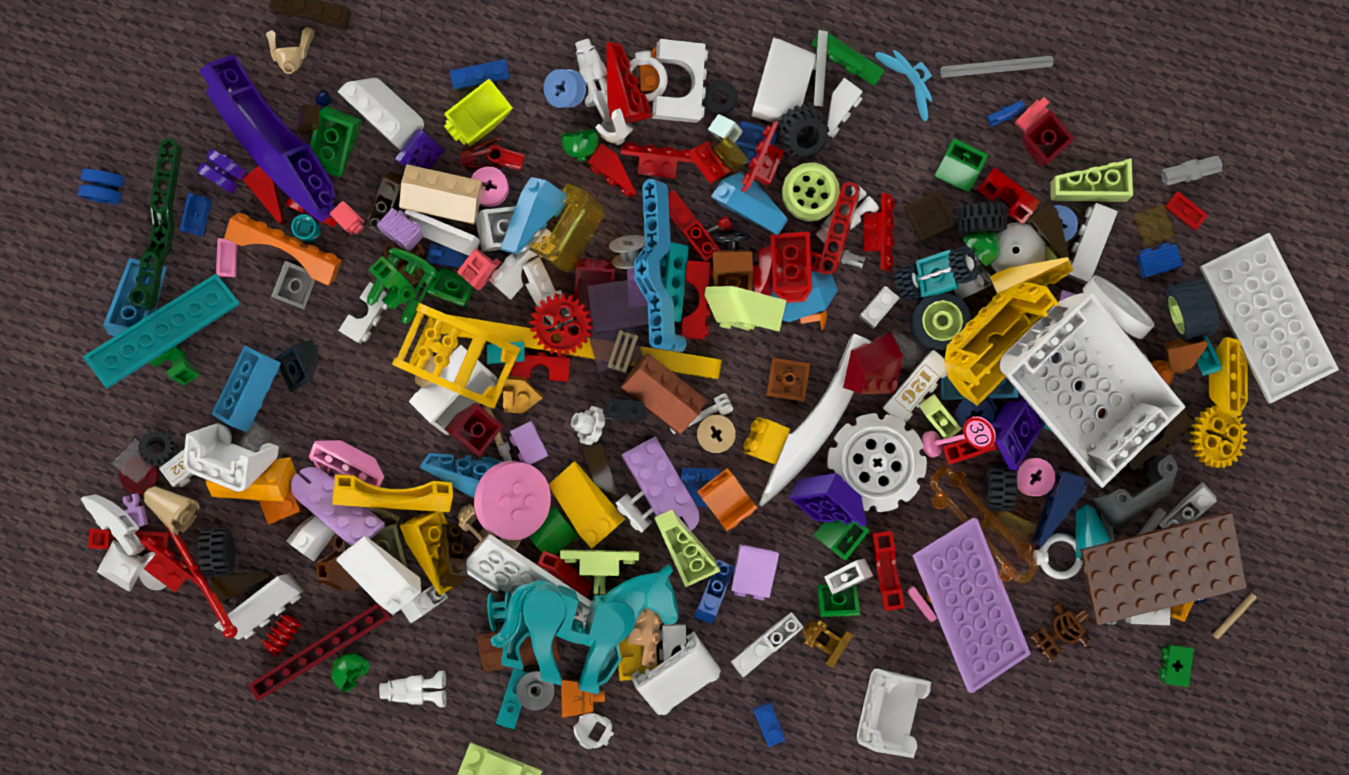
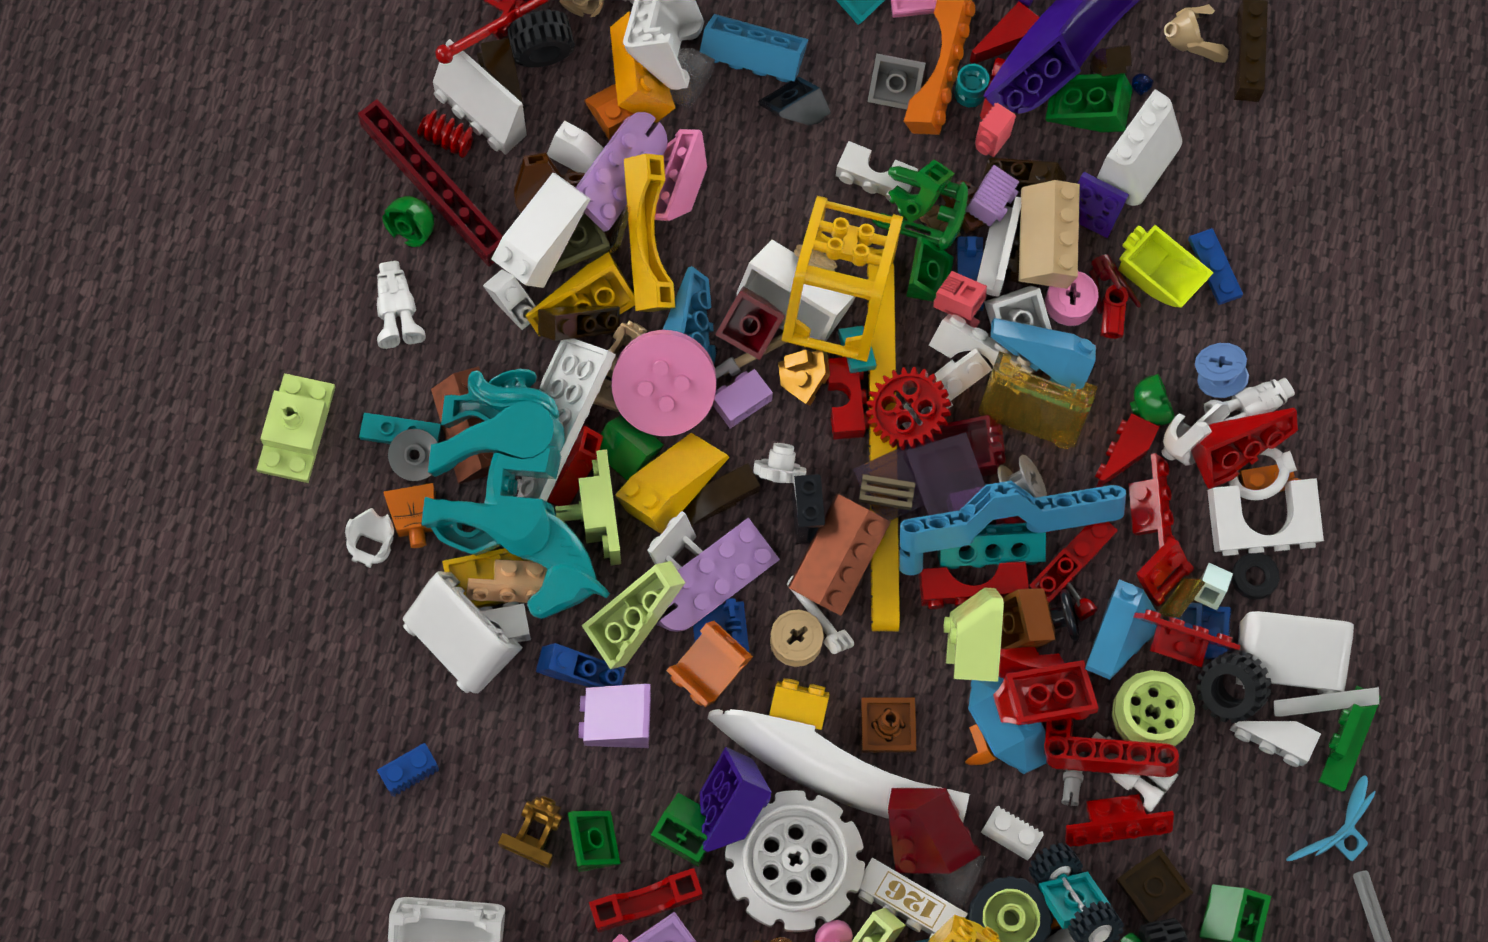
camera: 80 degrees right, 15 degrees down
(766, 644) = (518, 750): white slope -> none
(848, 576) = (630, 848): white slope -> none

